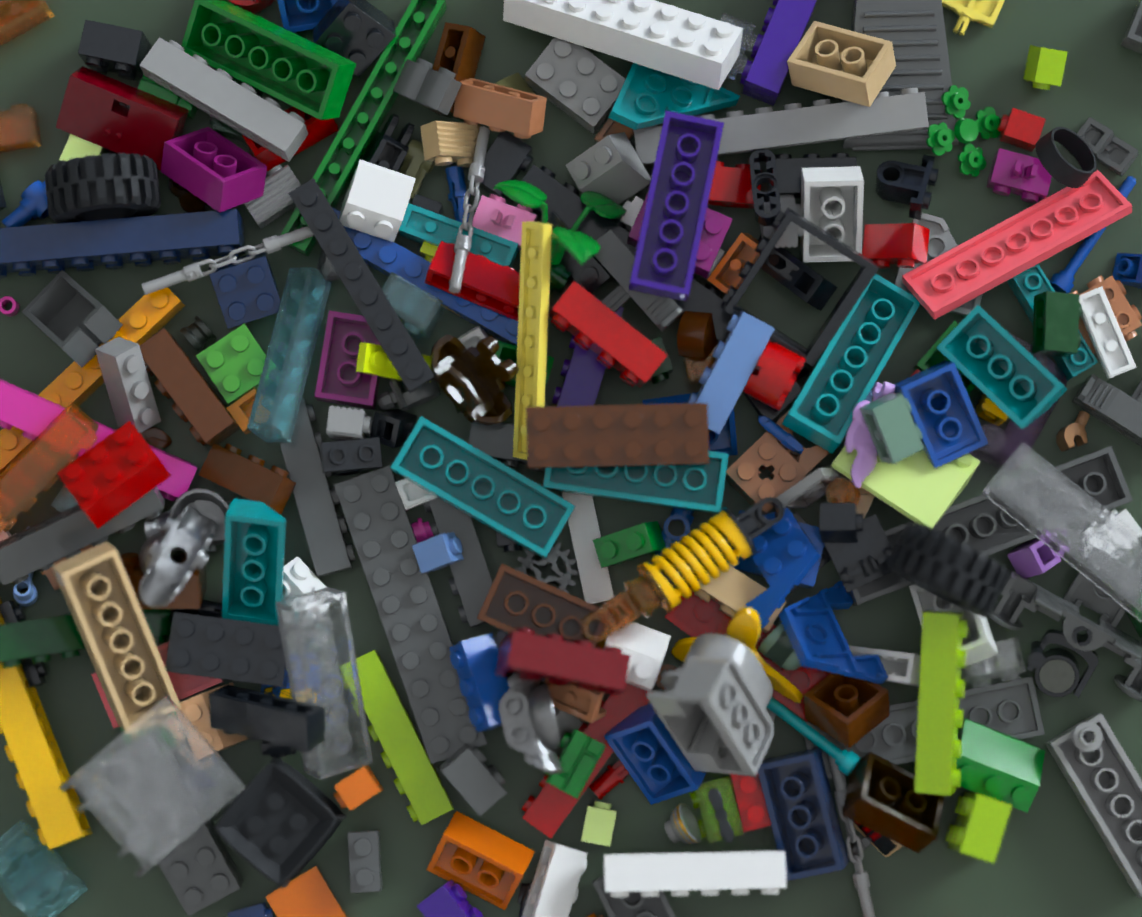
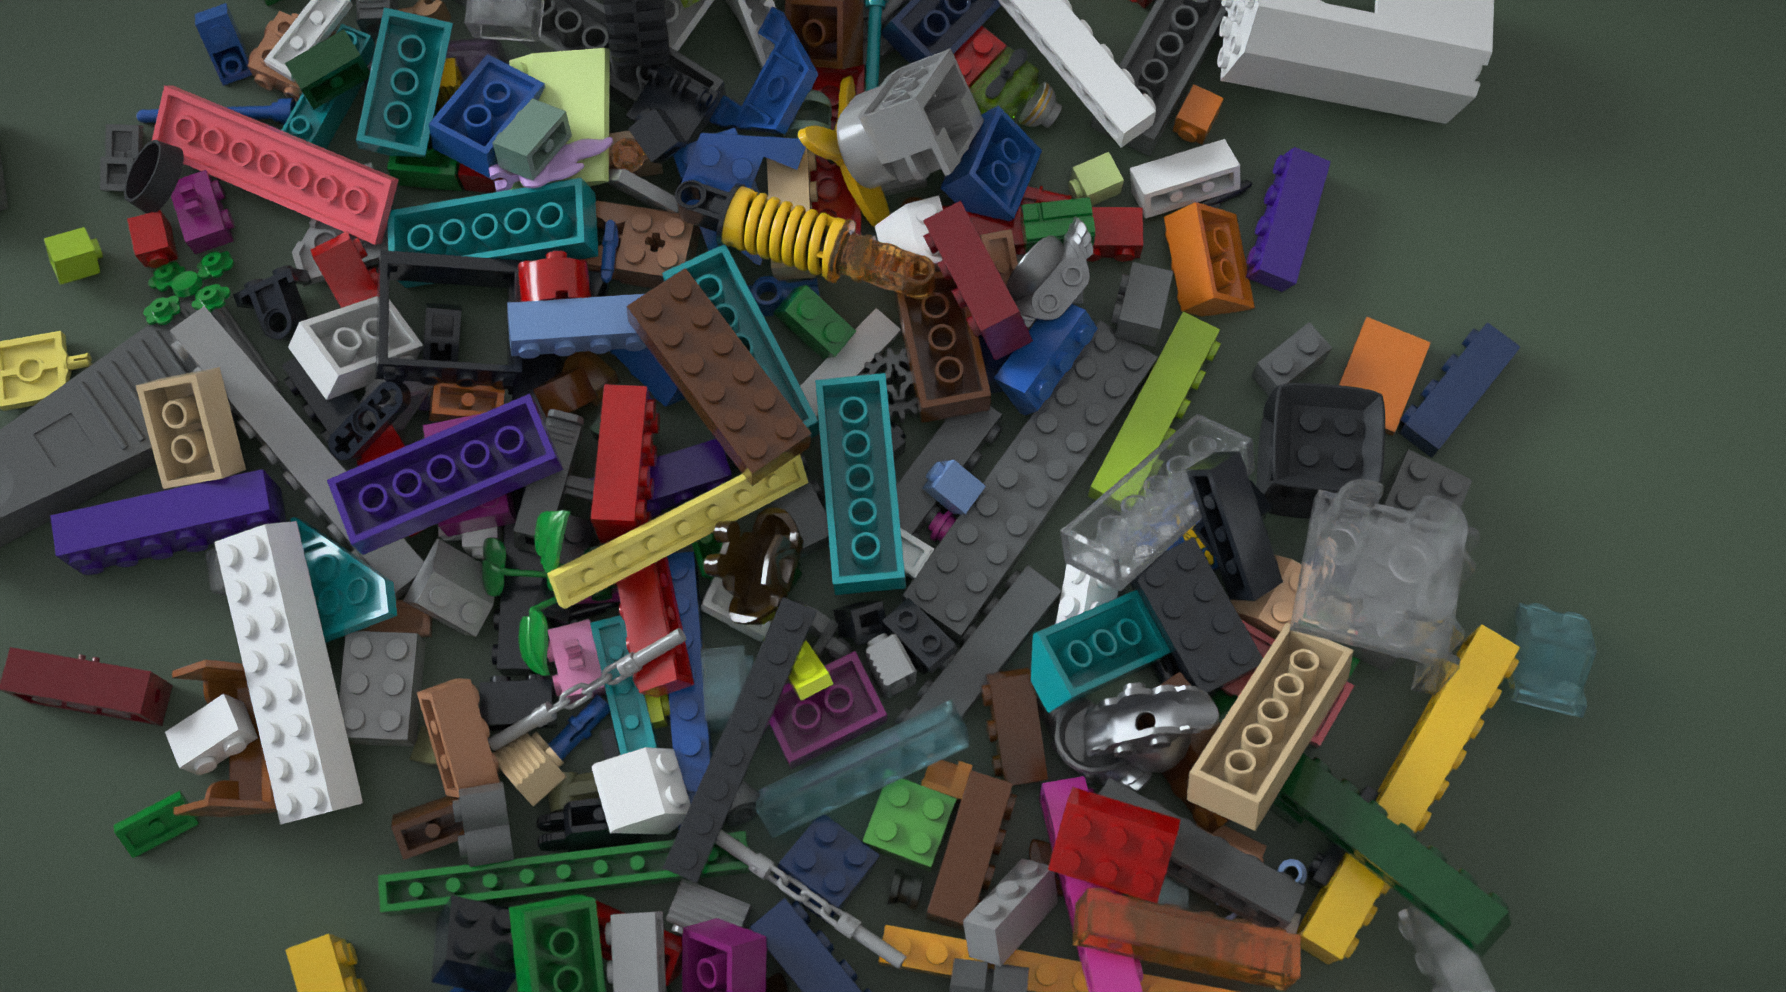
camera: 125 degrees left, 10 degrees down
(357, 788) = (1234, 405): orange brick -> none

